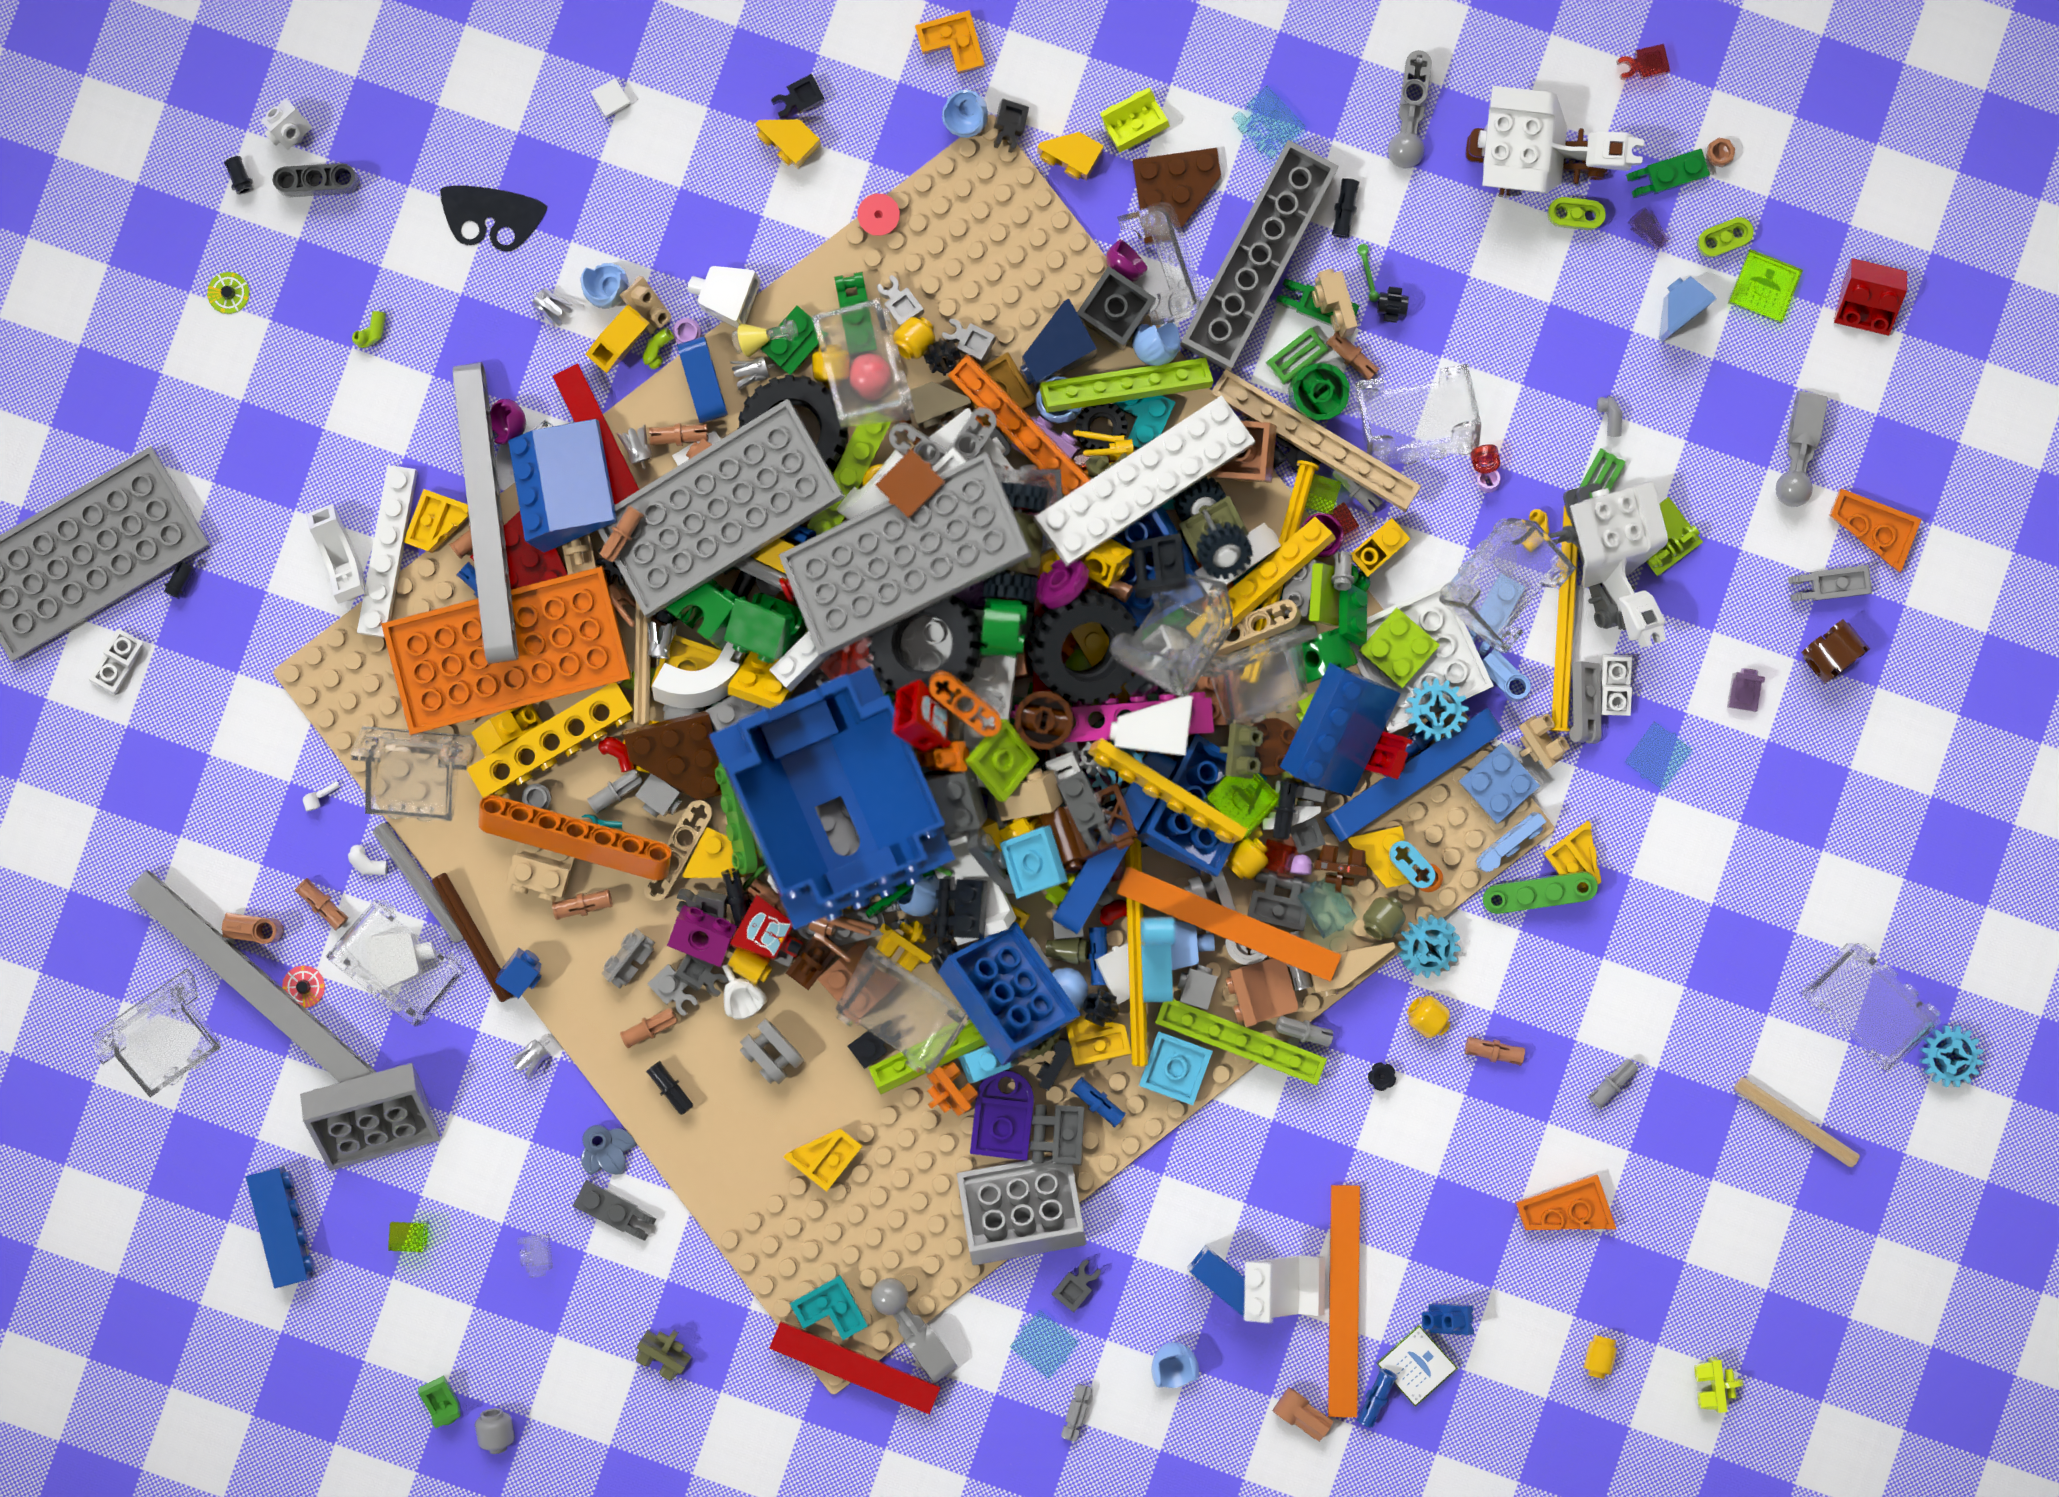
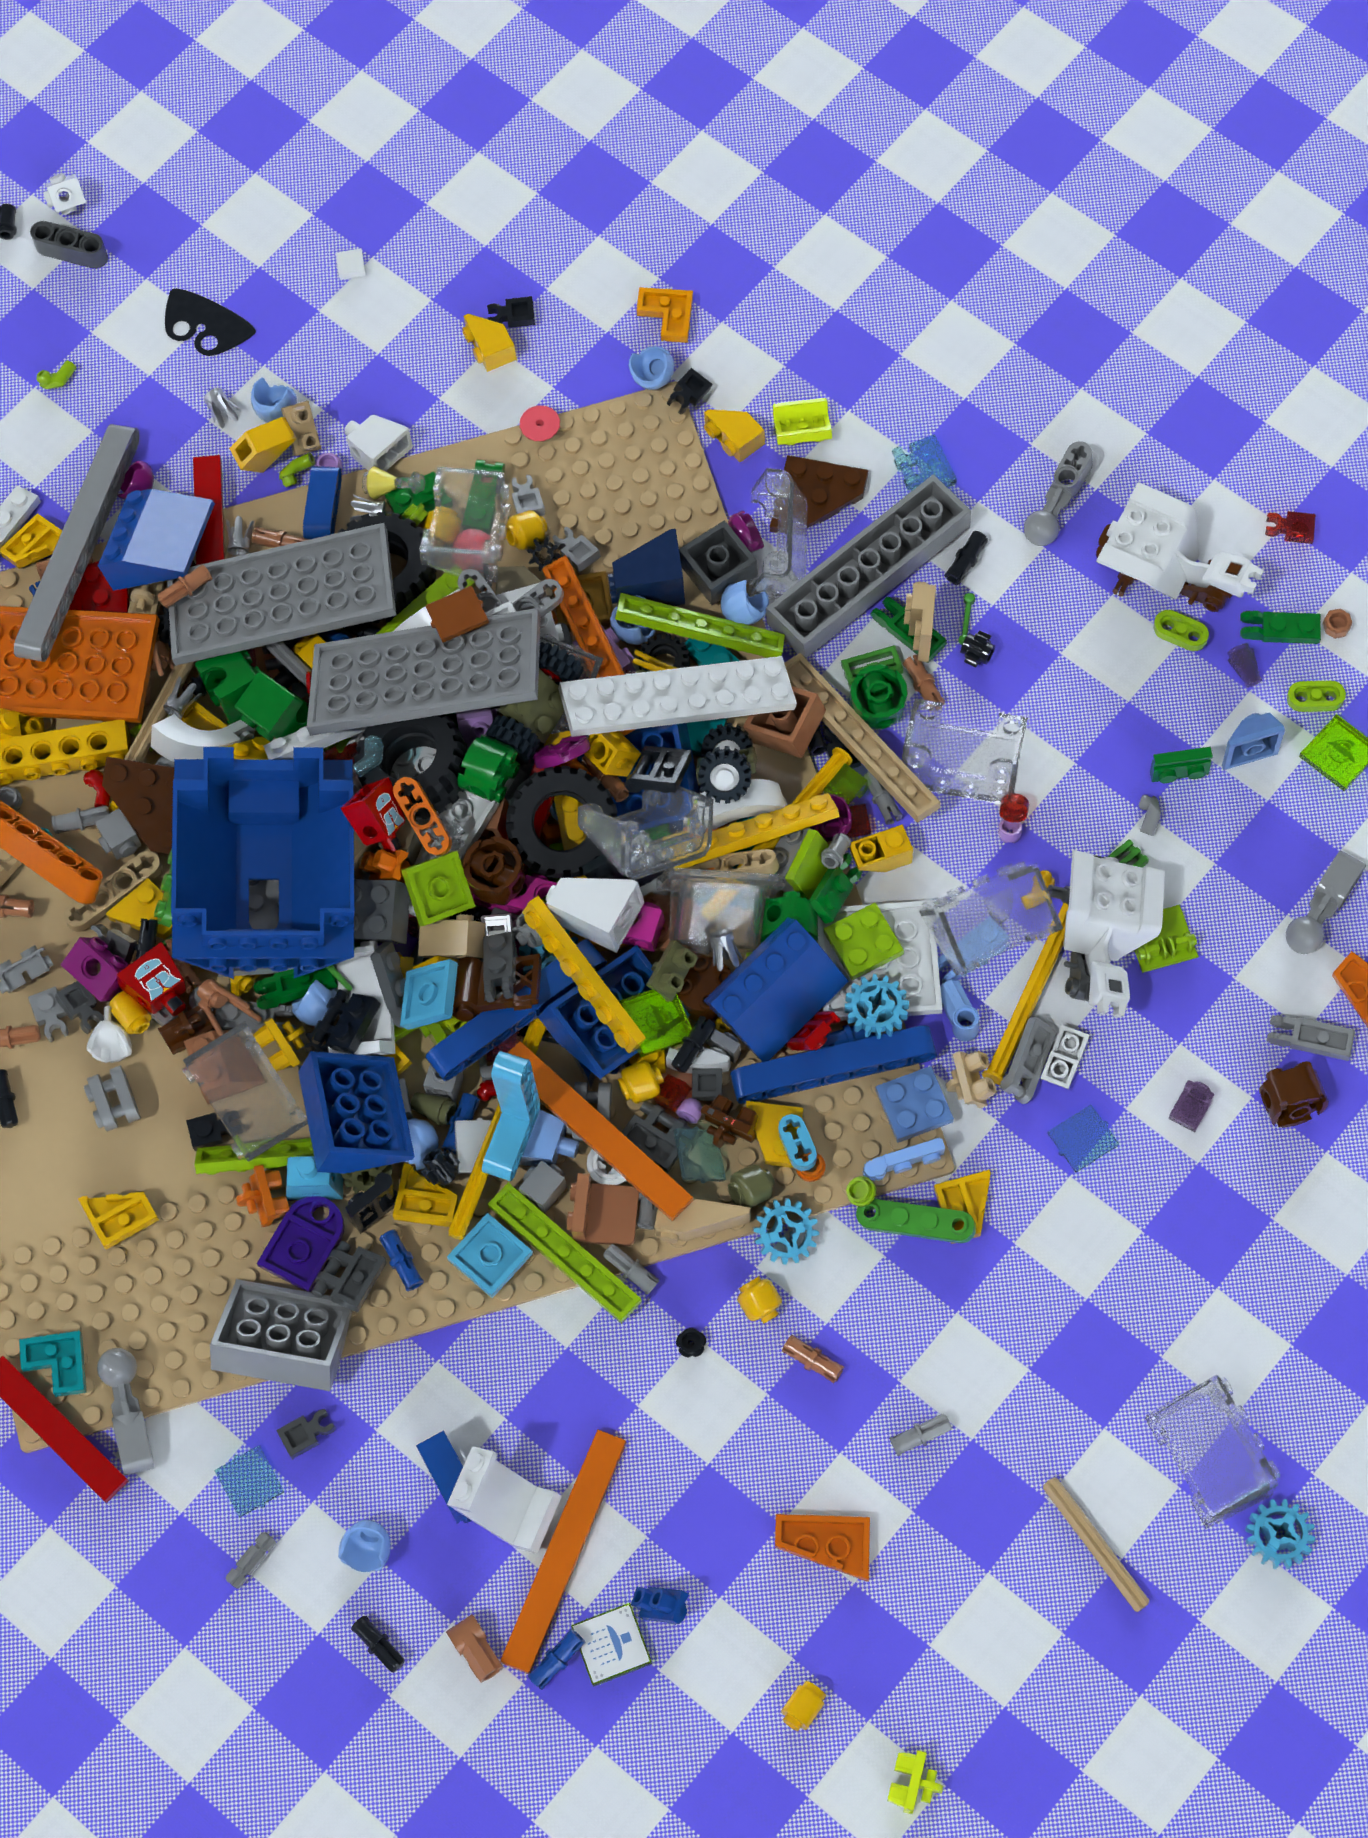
camera: 25 degrees right, 20 degrees down
(801, 364) = (415, 513): none -> lime plate
(892, 659) = (372, 755): none -> clear light blue arm
(1218, 1442) = (378, 1644): none -> black axle
(1278, 708) = (724, 946): none -> flat silver piece
(1482, 885) = (861, 1191): none -> lime plate
(1635, 354) = (1181, 764): none -> green plate

